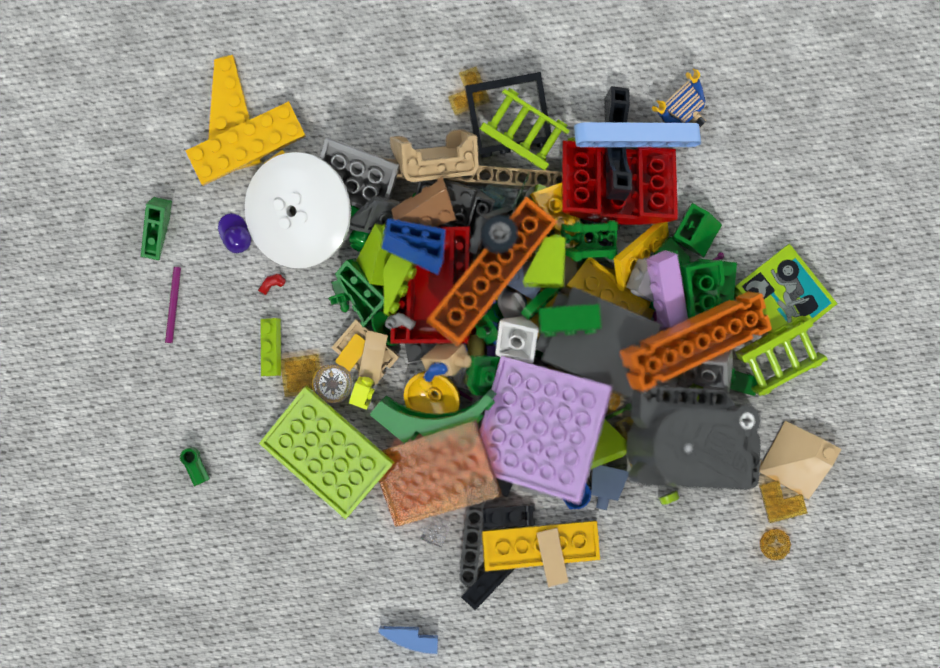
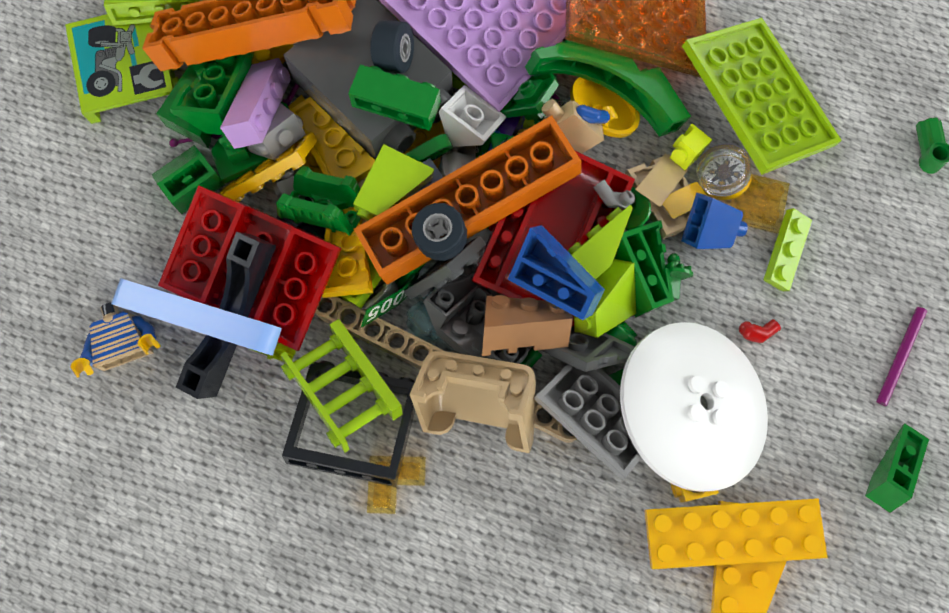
camera: 155 degrees left, 10 degrees down
(234, 233) = (788, 418): dark purple cap -> none
(327, 339) = (713, 224): none -> blue torso
(587, 353) = (392, 46): none -> black wheel

